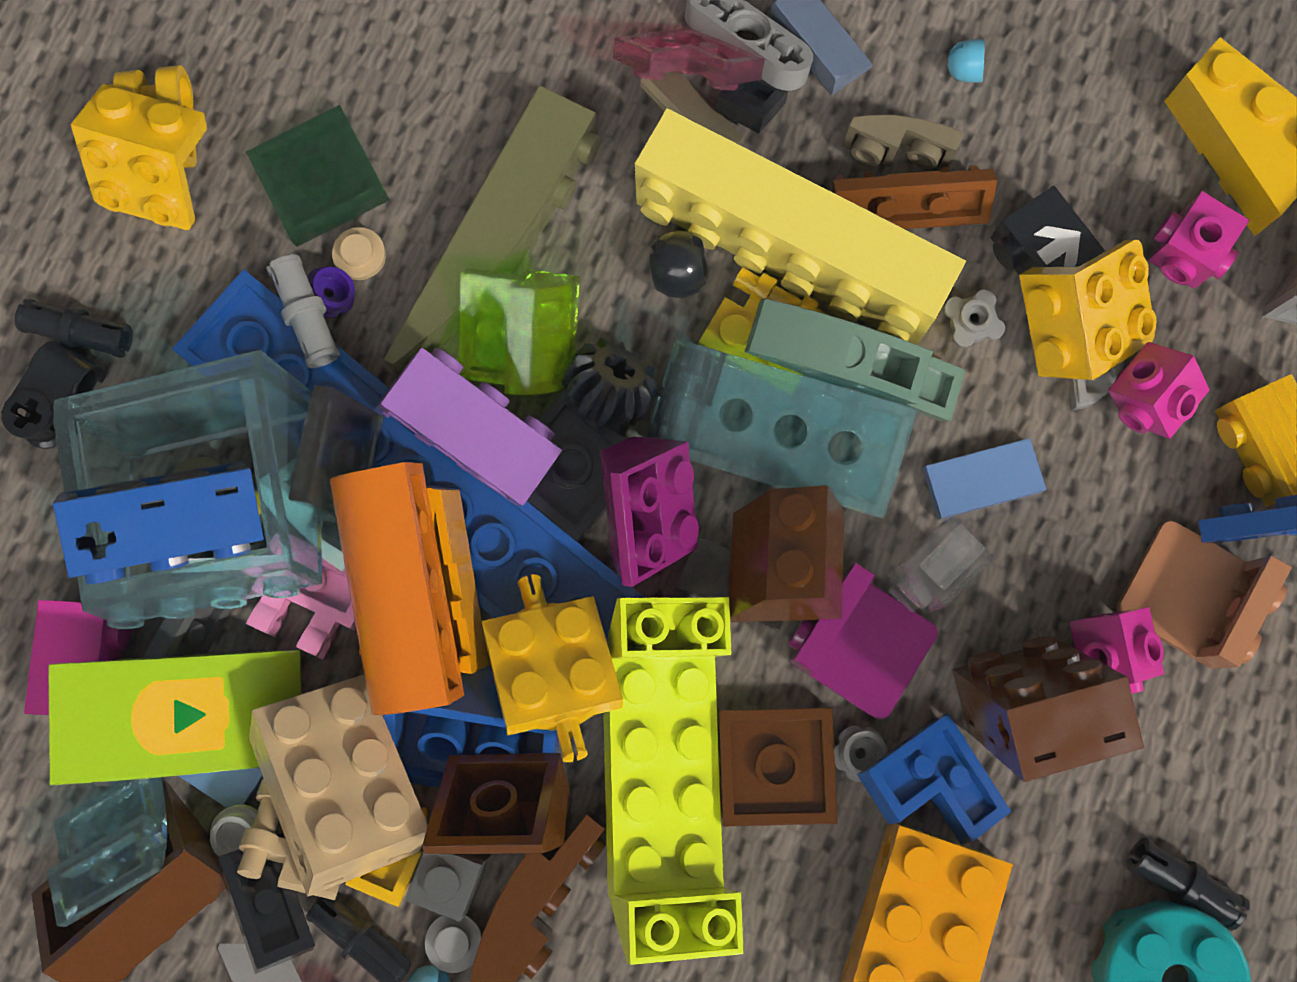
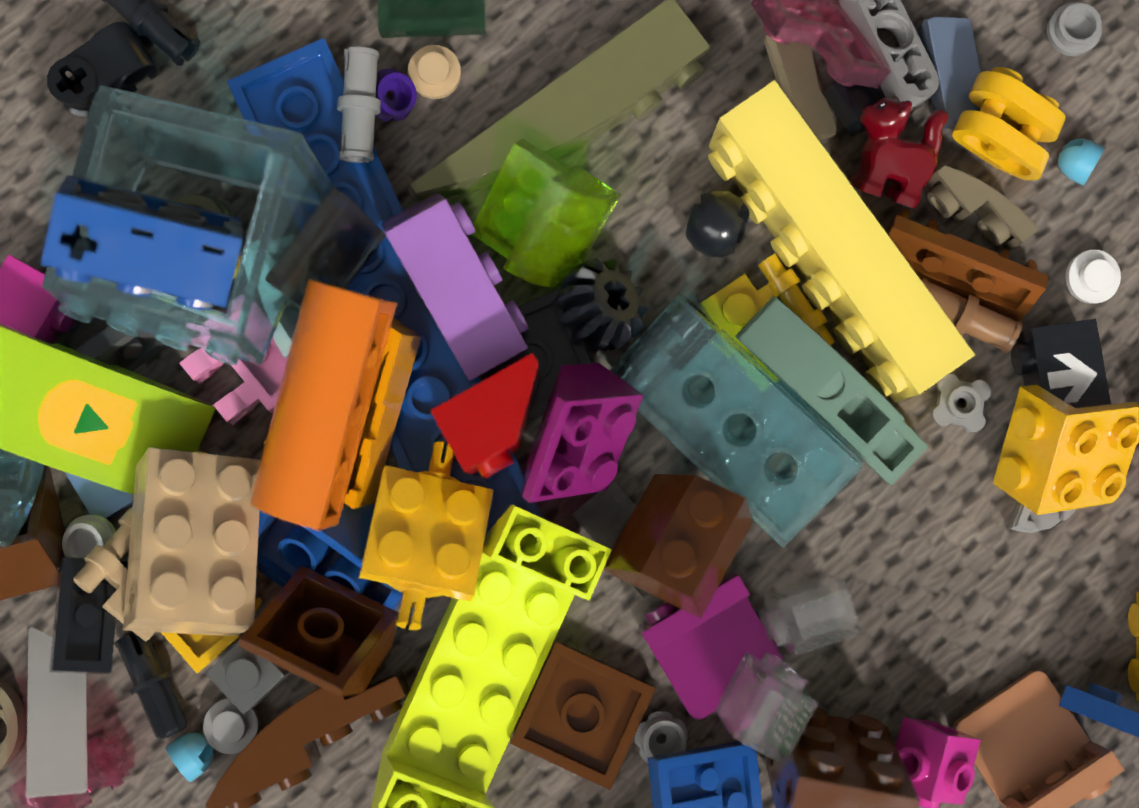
camera: 20 degrees right, 5 degrees up
(558, 528) = (490, 418): none -> red slope
(800, 133) = (903, 160): none -> dark red animal
(891, 57) = (1009, 124): none -> yellow brick
(942, 668) = (766, 705): none -> clear brick
(958, 238) = (975, 319): none -> medium nougat pin
(984, 479) = (895, 552): medium blue tile -> none
(1031, 154) = (1093, 276): none -> white plate
(1158, 390) = (1092, 551): dark pink brick -> none

